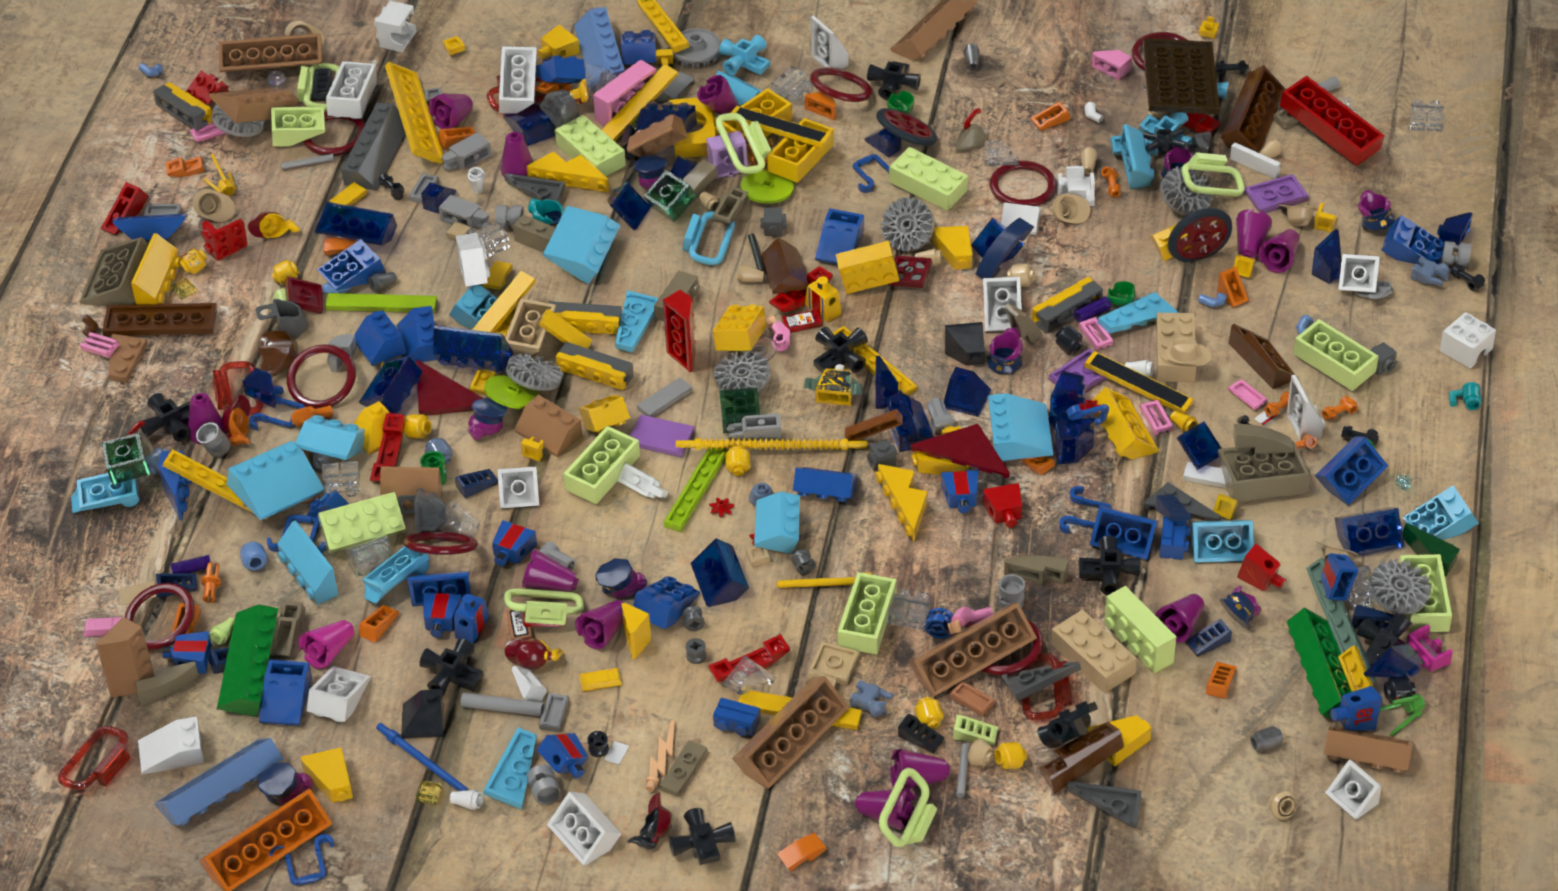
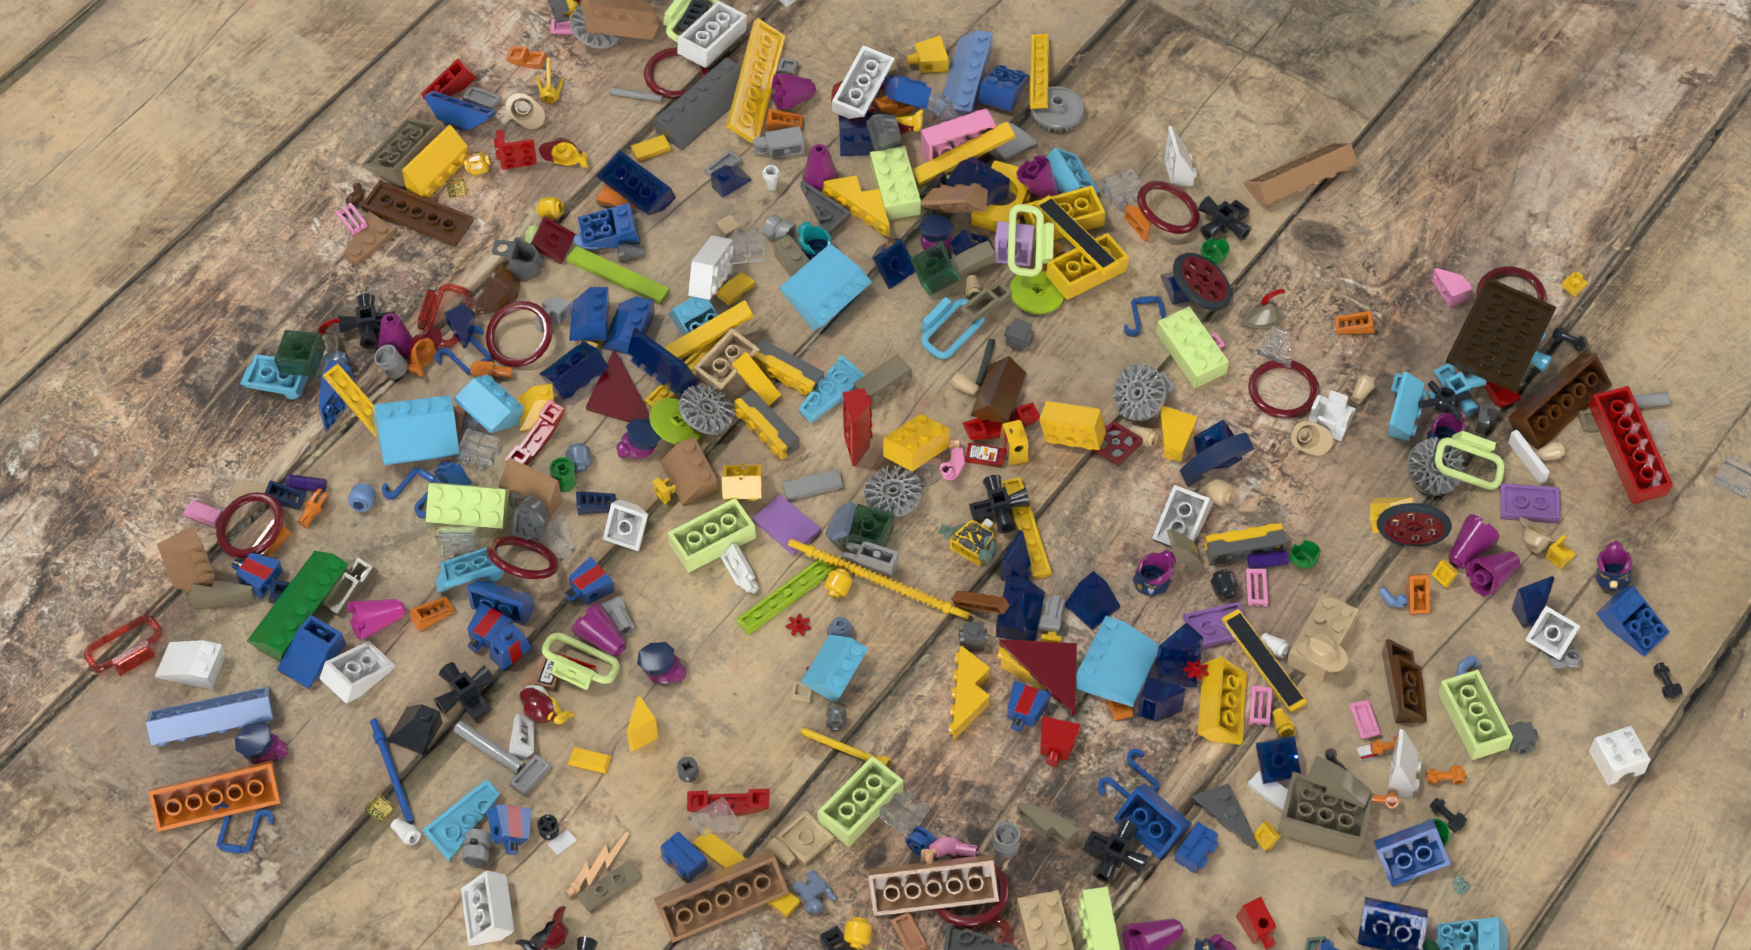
camera: 25 degrees right, 10 degrees up
(222, 631) = (294, 563): yellowish green cone -> none
(296, 124) = (642, 52): yellowish green slope -> none
(307, 564) = (399, 528): medium azure slope -> none
(329, 773) = (305, 751): yellow slope -> none
(395, 188) = (696, 158): black bar -> none
(417, 426) = (574, 422): yellow head -> none
(453, 45) = (834, 19): yellow plate -> none
(462, 211) = (740, 207): light grey hinge -> none
(600, 624) = (618, 703): magenta cone -> none
(664, 56) = (1020, 109): yellow tile -> none
(665, 600) = (689, 704): blue slope -> none
(693, 618) = (704, 734): dark grey wheel -> none
(712, 412) = (841, 522): none -> sand blue slope
(719, 574) = (754, 697): clear blue slope -> none
(744, 55) = (1096, 137): medium azure brick -> none
(824, 483) = (904, 641): blue slope -> none
(839, 234) = (1070, 377): blue slope -> none
(965, 343) = (1120, 548): black slope -> none
(971, 54) = (1317, 222): flat silver cone -> none
(1028, 213) = (1259, 426): white slope -> none
(1075, 413) = (1167, 677): blue piece -> none
(1090, 112) = (1397, 334): white arm -> none
(1111, 175) = (1375, 415): orange bar -> none
(1135, 313) = (1309, 582): medium azure wing -> none
(1171, 508) = (1208, 815): dark blue slope -> none
(1221, 540) = (1241, 871): medium azure slope -> none
(1428, 270) = (1629, 657): sand blue animal -> none
(1455, 228) = (1686, 621): clear blue slope -> none
(1463, 254) = (1675, 654): light grey wheel -> none
(1471, 396) = (1586, 819): teal piece -> none

